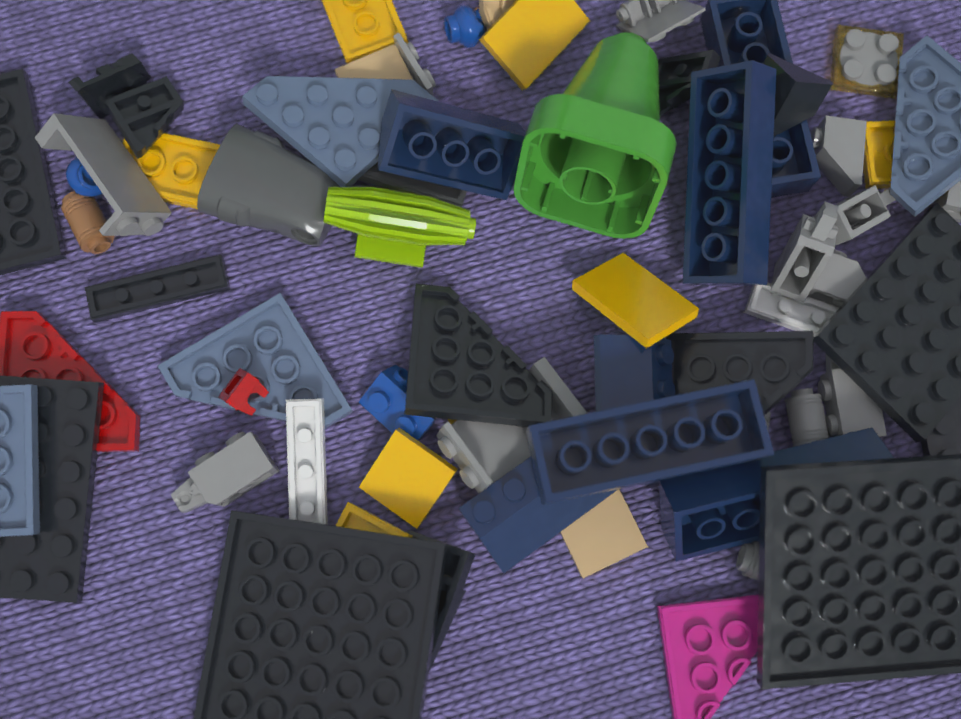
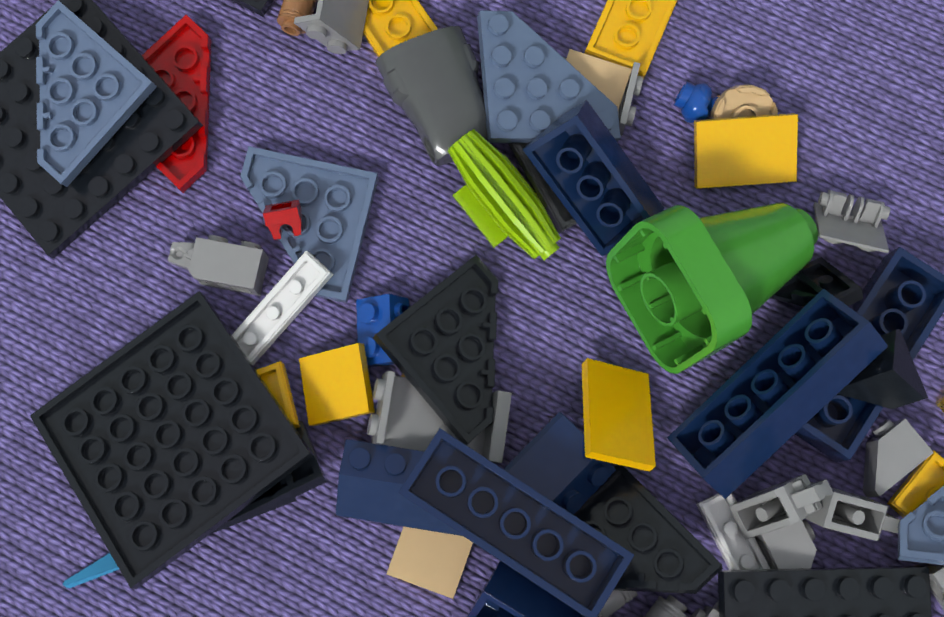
camera: 50 degrees right, 0 degrees up
(157, 288) = (302, 93): black tile -> none

